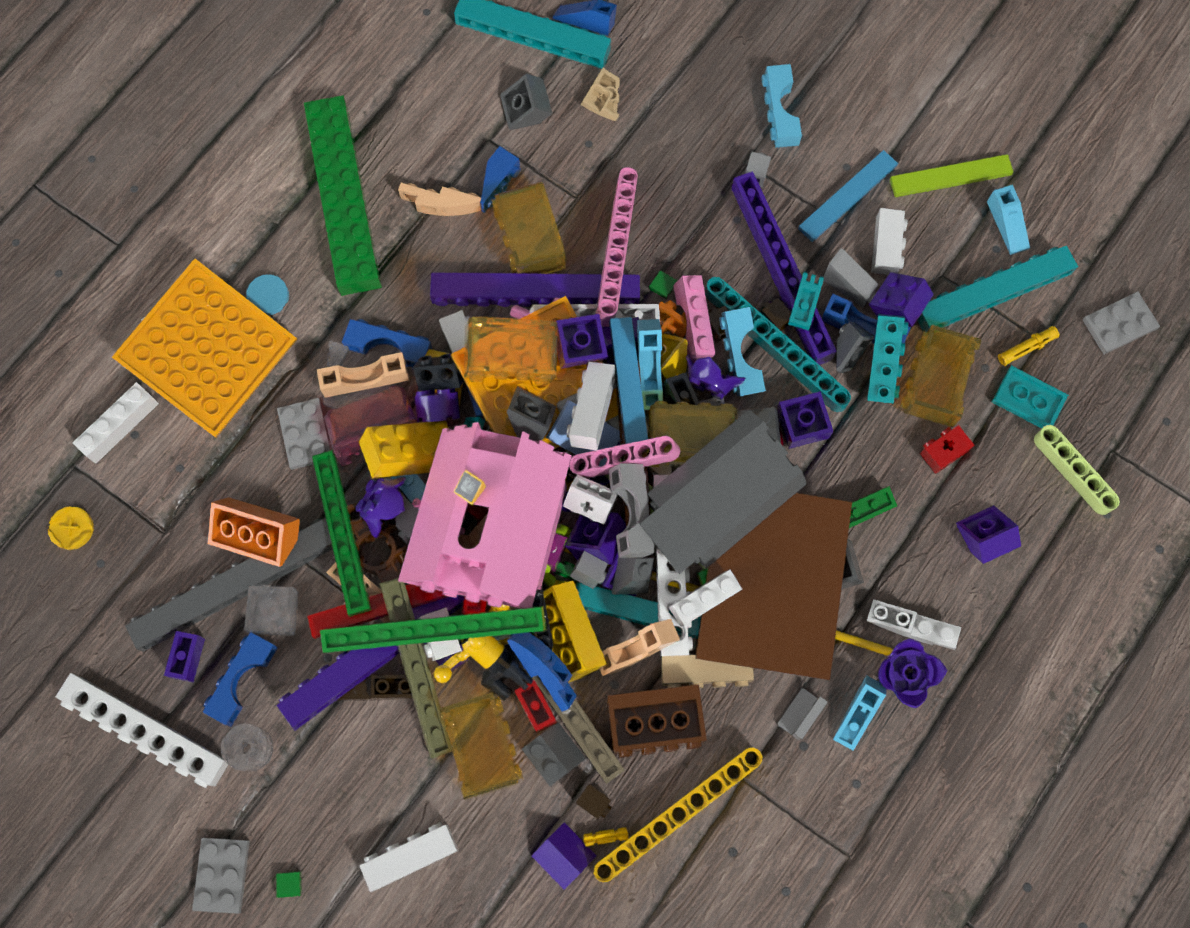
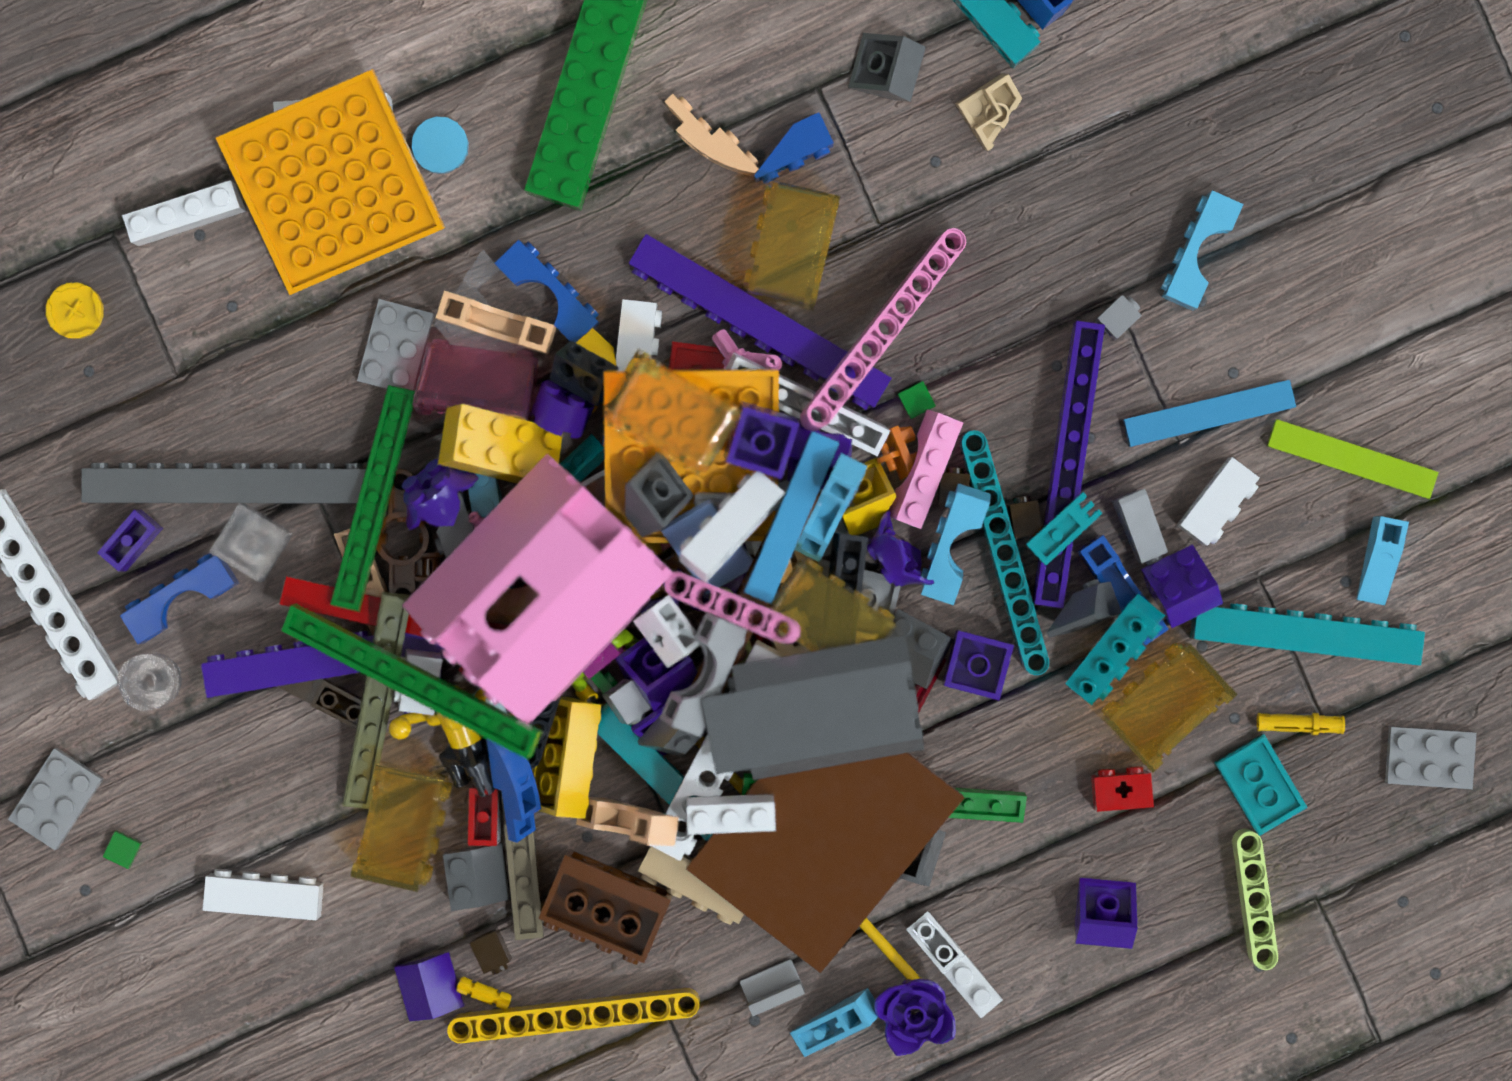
camera: 30 degrees right, 15 degrees up
(252, 530) = (275, 438): orange slope -> none
(469, 487) = (529, 561): slope -> none

